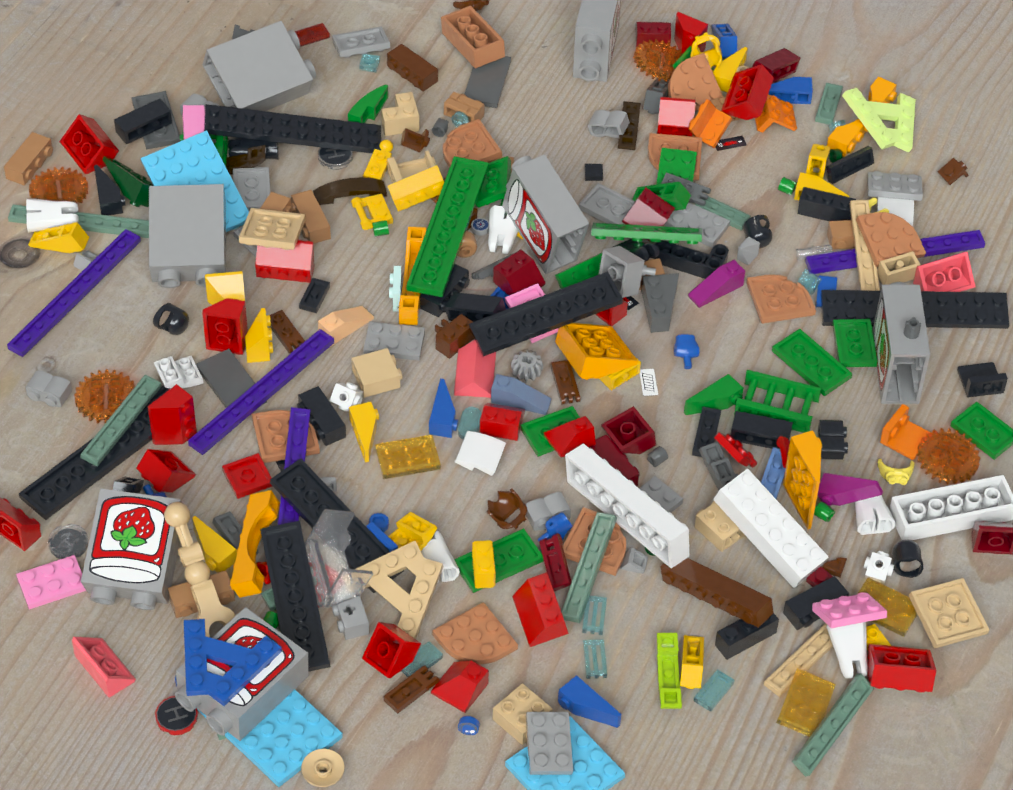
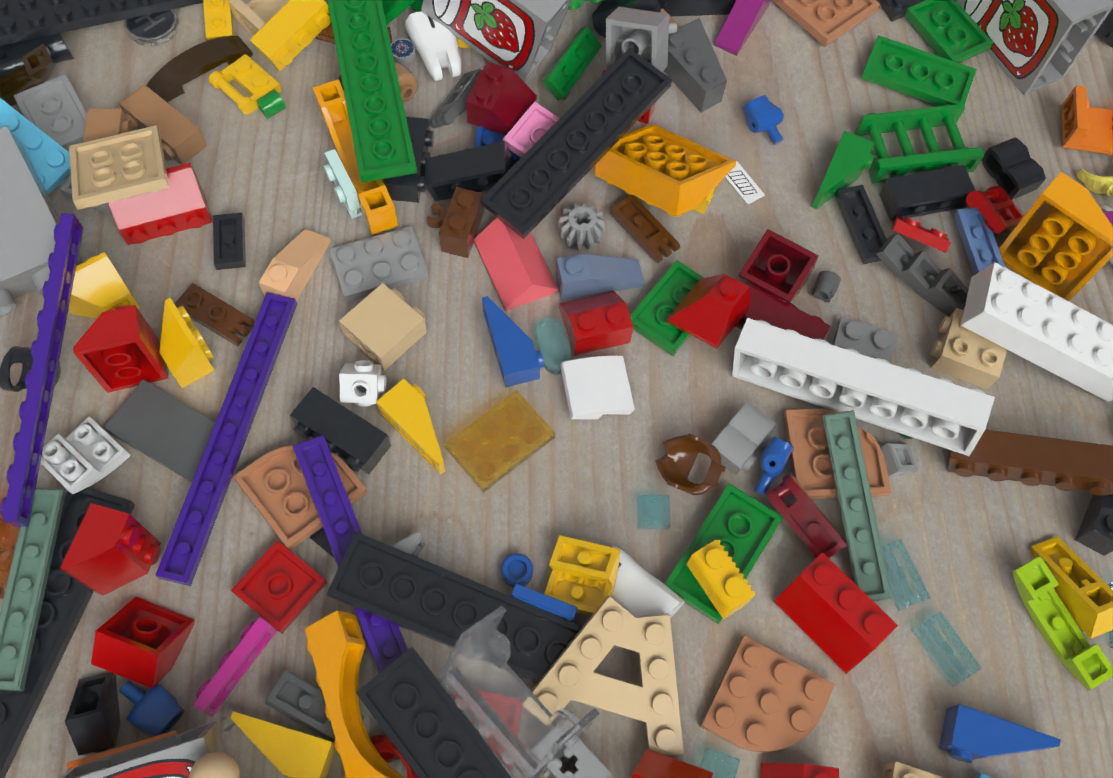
camera: 30 degrees left, 15 degrees up
(180, 319) = (41, 378): none -> dark purple plate
(210, 499) = (234, 666): none -> dark pink plate
(473, 527) = (653, 511): none -> clear light blue plate

